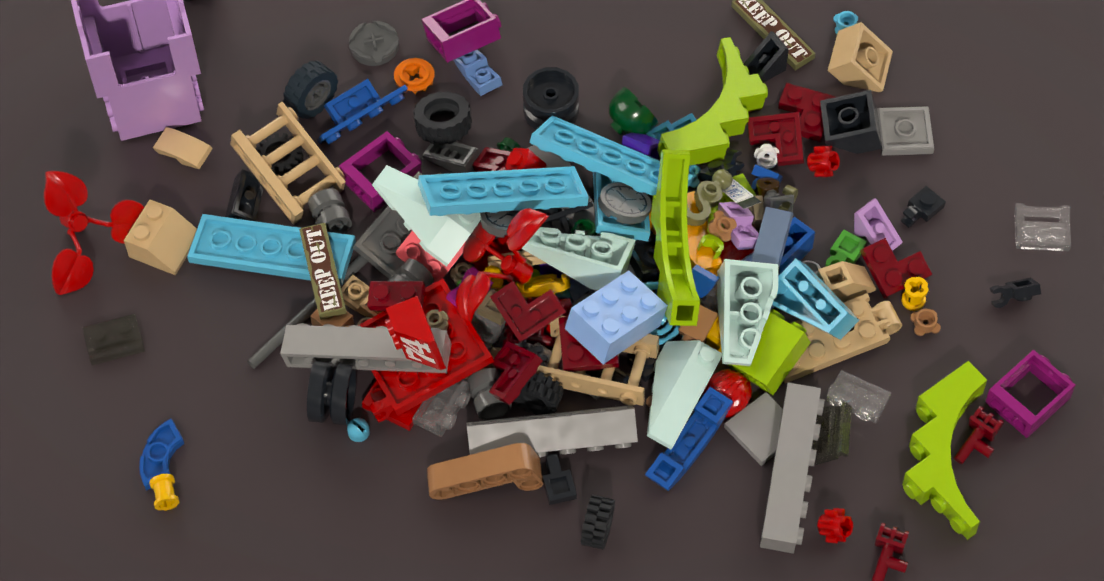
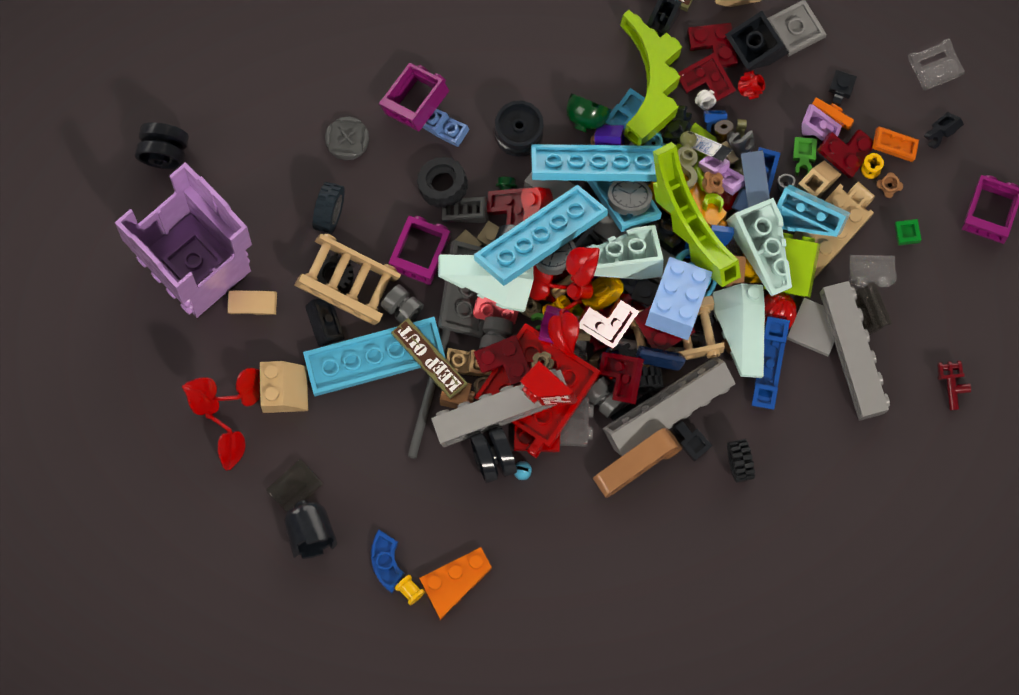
camera: 30 degrees left, 15 degrees up
(96, 383) = (309, 529): none -> black cylinder
(217, 505) = (452, 581): none -> orange wing
(355, 105) = (368, 202): blue bracket -> none
(411, 67) = (389, 147): orange gear -> none
(564, 372) = (661, 357): none -> dark blue slope
(584, 225) = (608, 227): dark green plate -> none
(835, 525) = (906, 380): red gear -> none
(901, 225) = (835, 113): none -> orange plate
(918, 374) = (907, 232): none -> green tile
(934, 475) = (944, 282): lime arch -> none
(953, 283) = (895, 144): none -> orange plate
(980, 430) = (970, 255): dark red arm -> none

